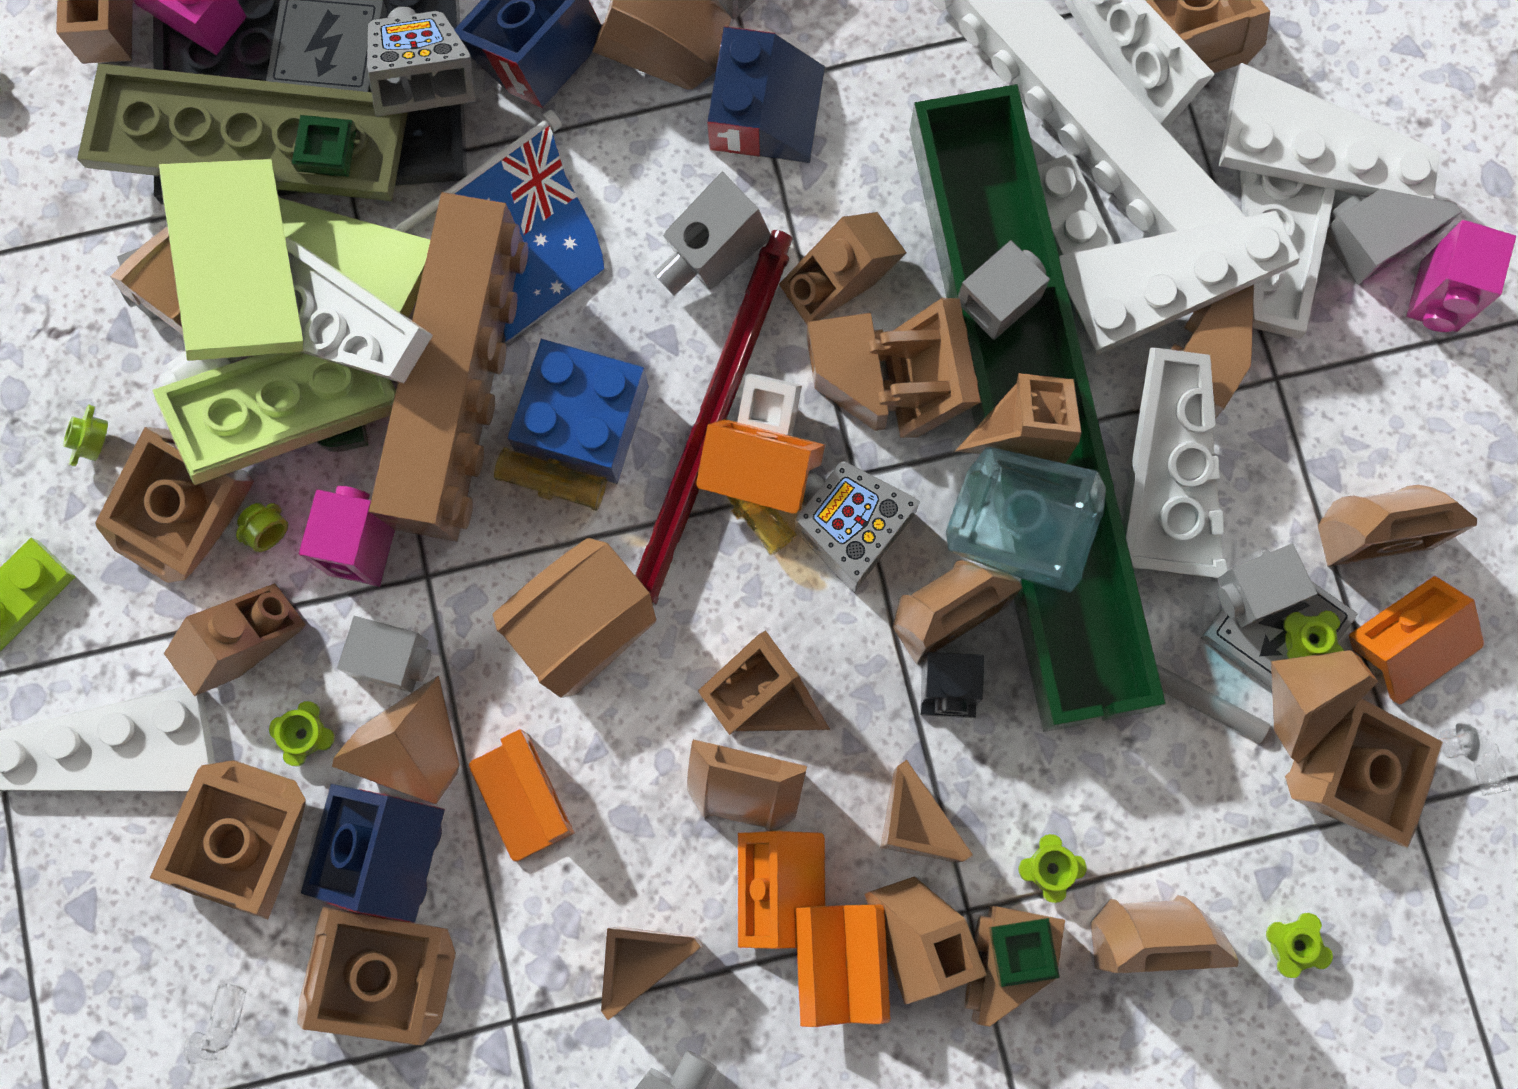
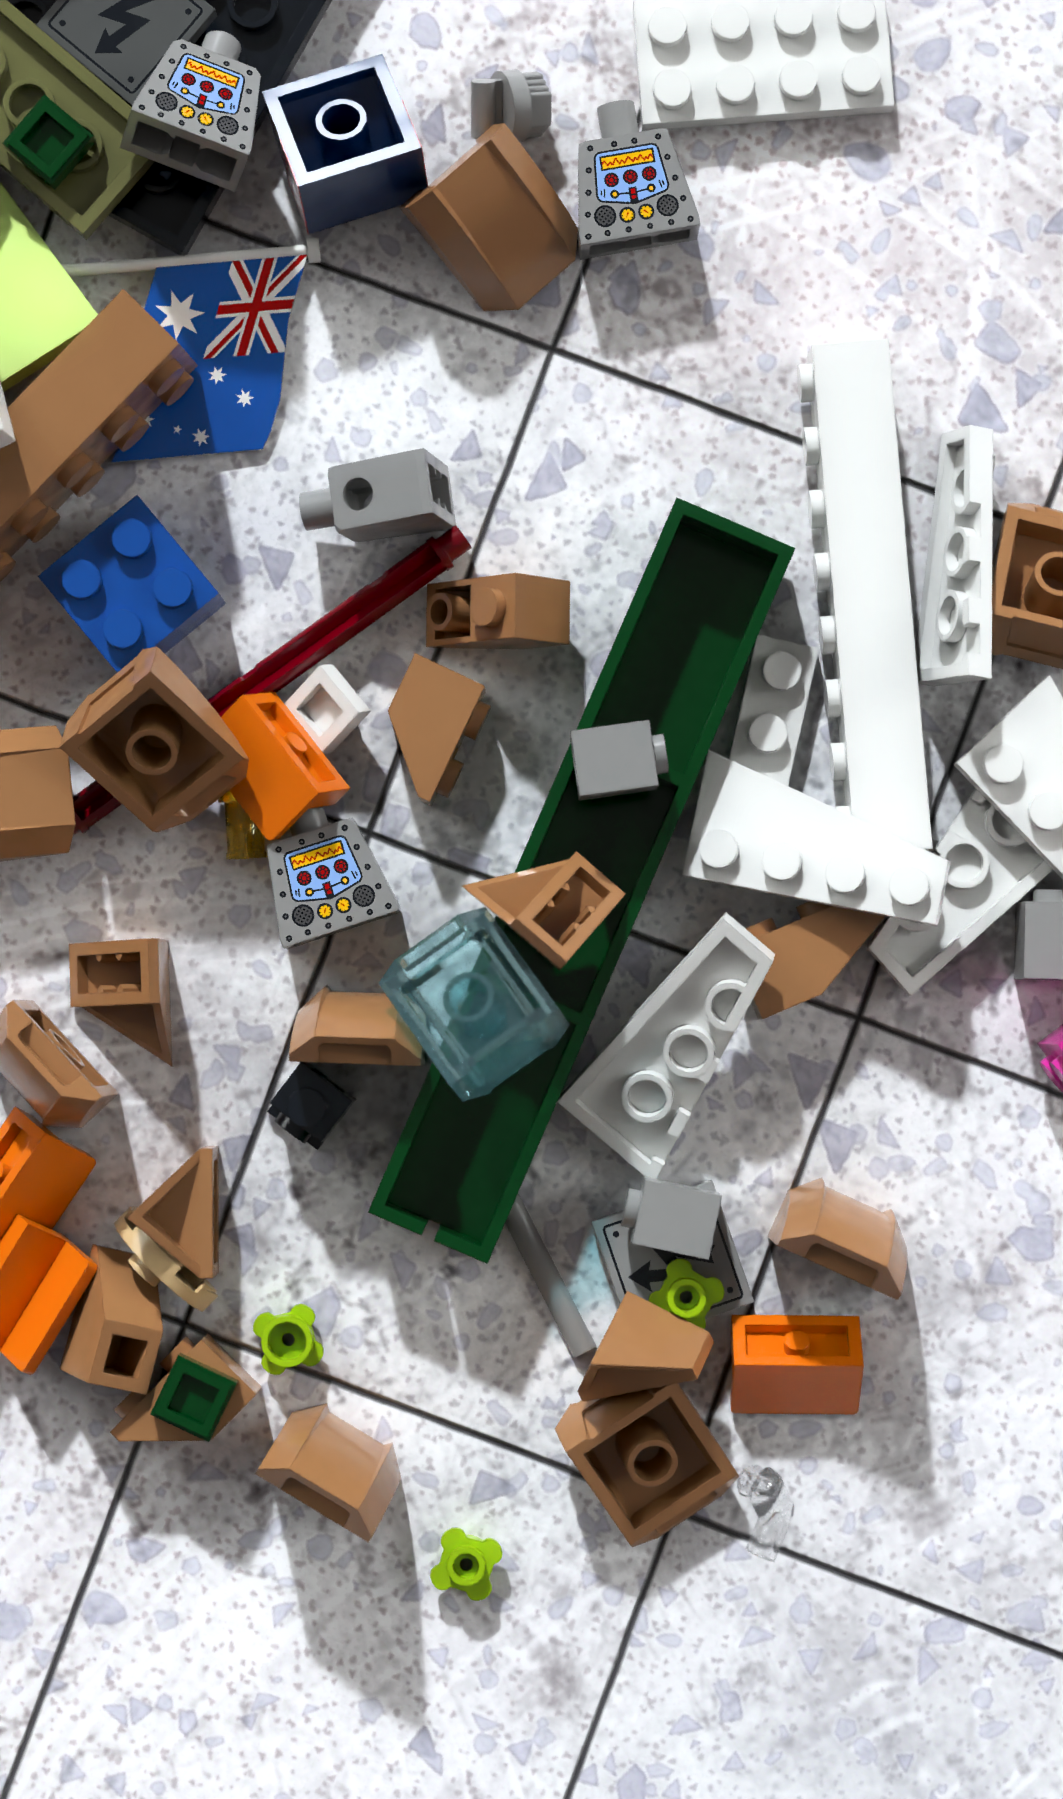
camera: 30 degrees right, 10 degrees up
(550, 478) = (34, 605): clear yellow pin -> none
(670, 494) = (155, 743): none -> medium nougat slope
(764, 97) = (545, 376): dark blue slope -> none
(923, 870) = (158, 1265): none -> tan plate
(928, 368) = (500, 781): medium nougat plate -> none

